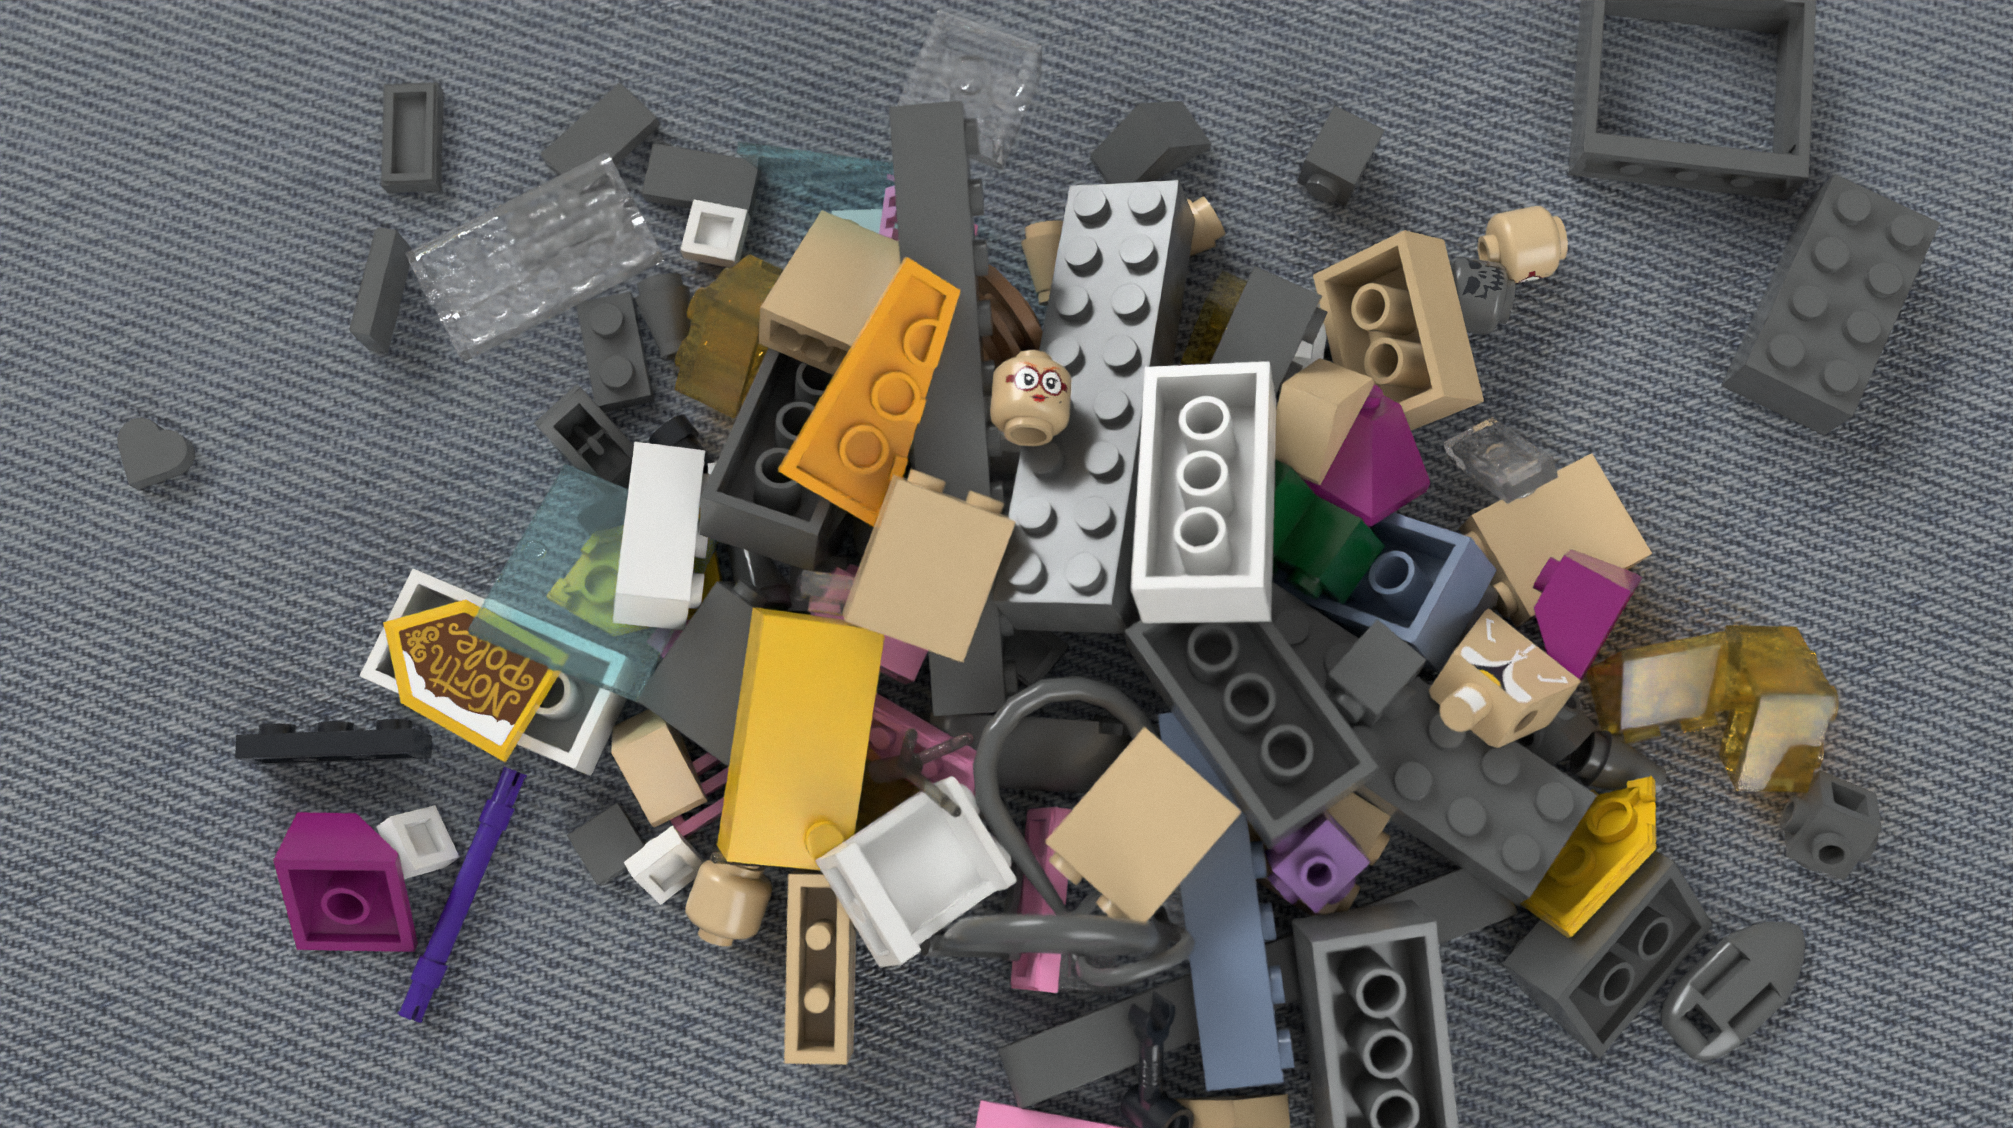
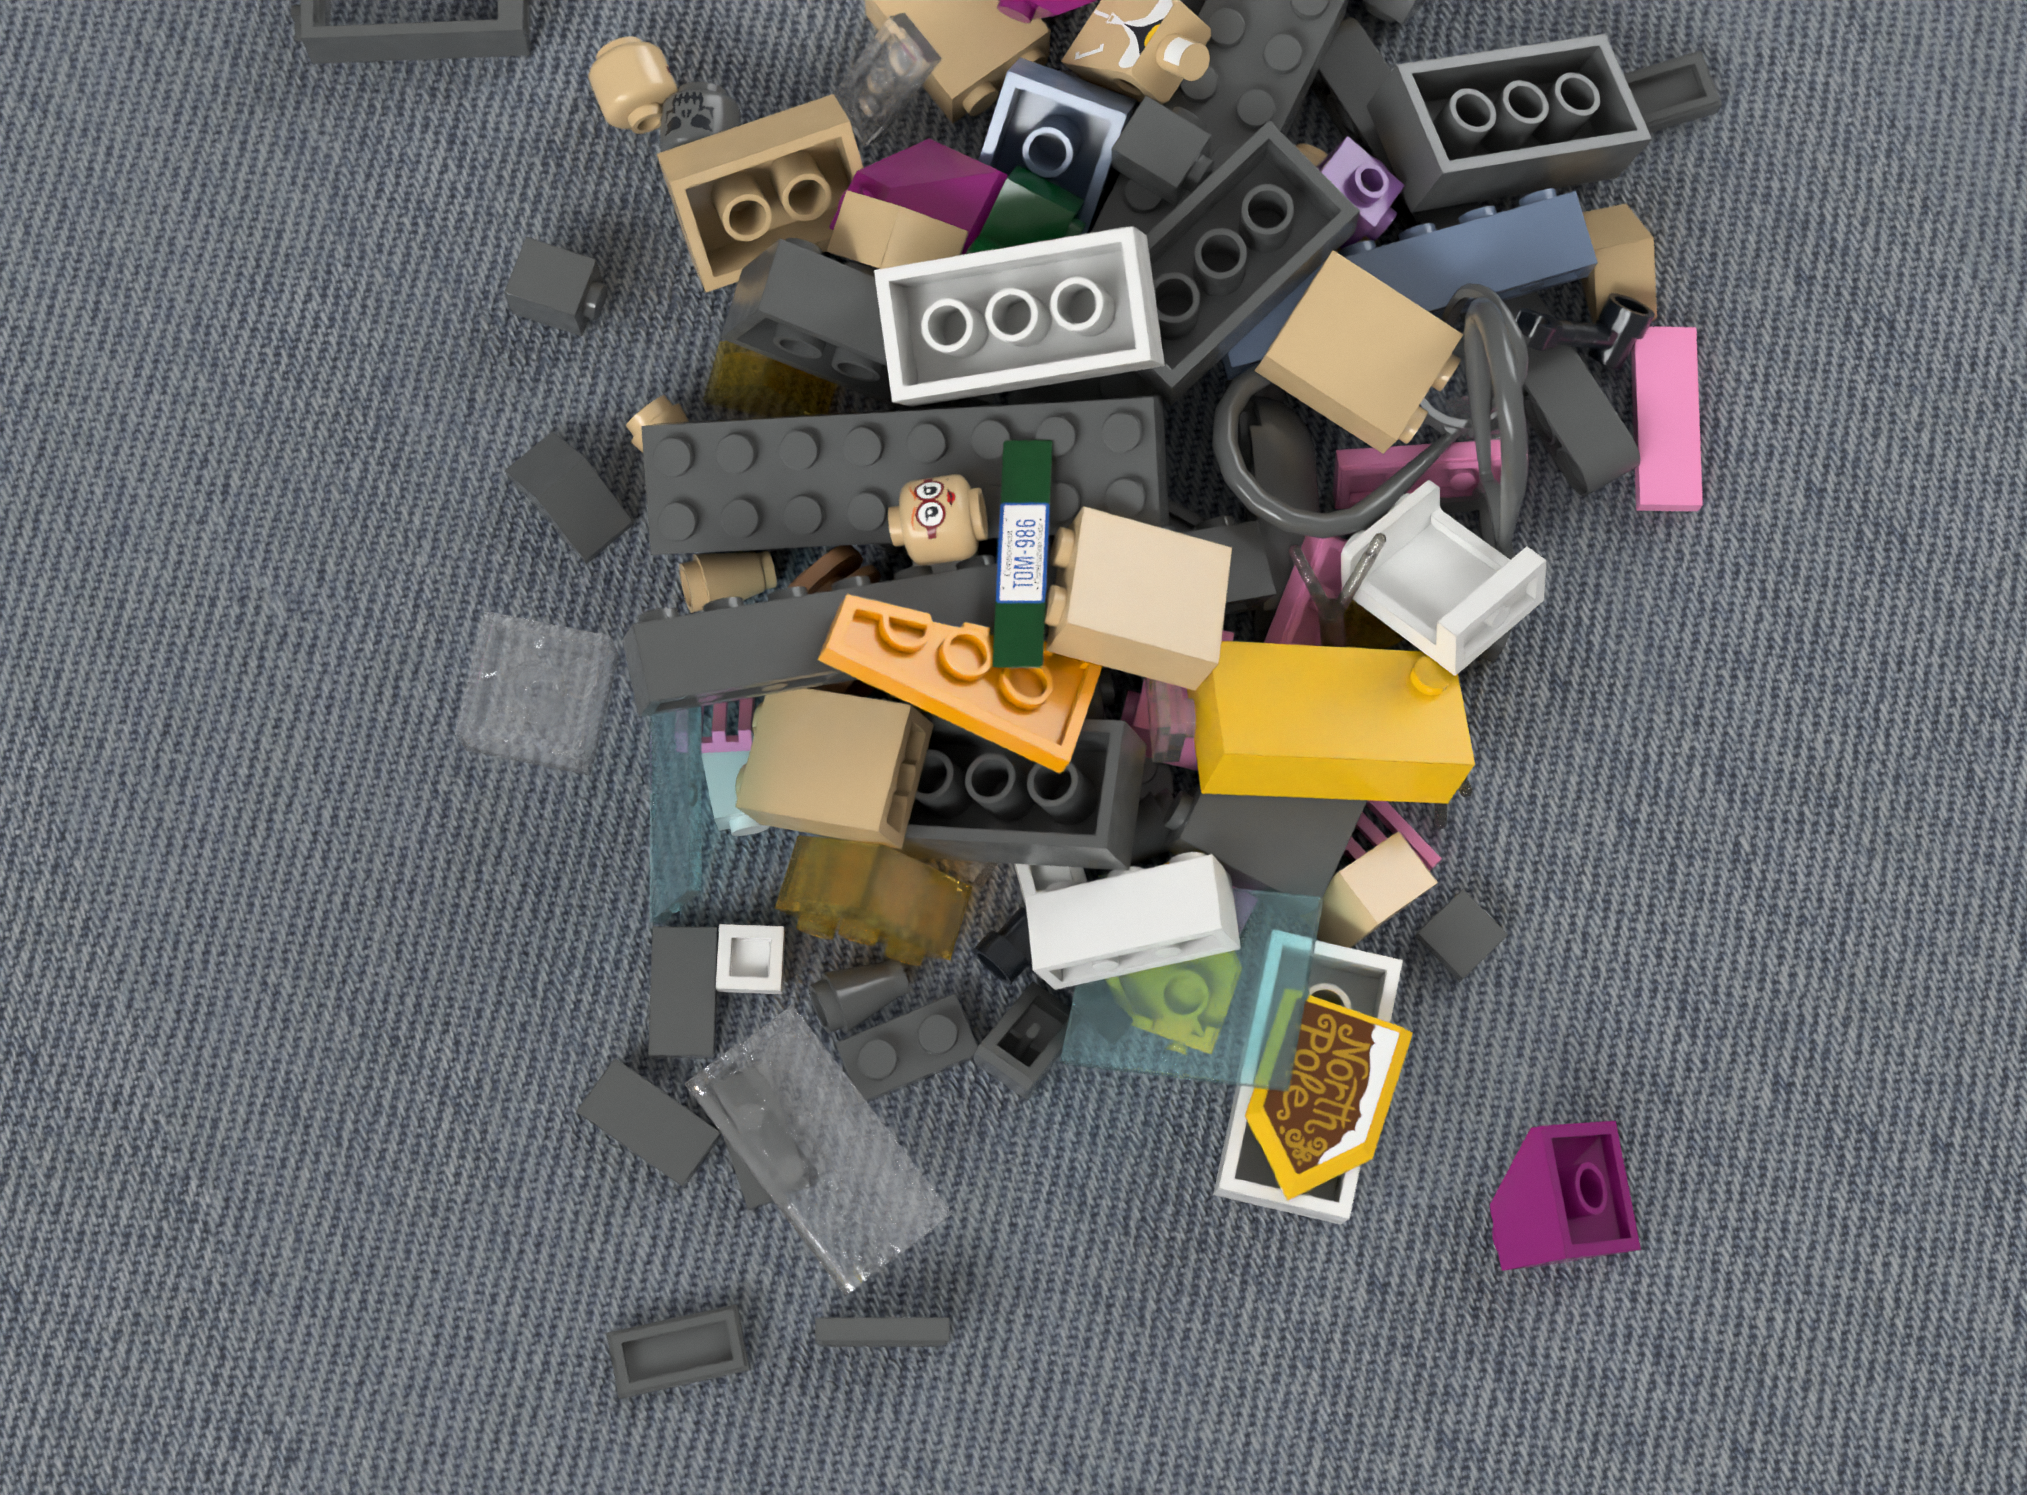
camera: 105 degrees left, 0 degrees up
(333, 743) = (1417, 1254): black plate -> none
(419, 840) = (1500, 1133): white plate -> none
(432, 965) = (1626, 1095): dark purple piece -> none
(665, 865) = (1472, 864): white plate -> none
(728, 902) = (1503, 793): tan head -> none
(818, 973) = (1557, 673): tan brick -> none
(982, 462) = (1022, 554): none -> sticker

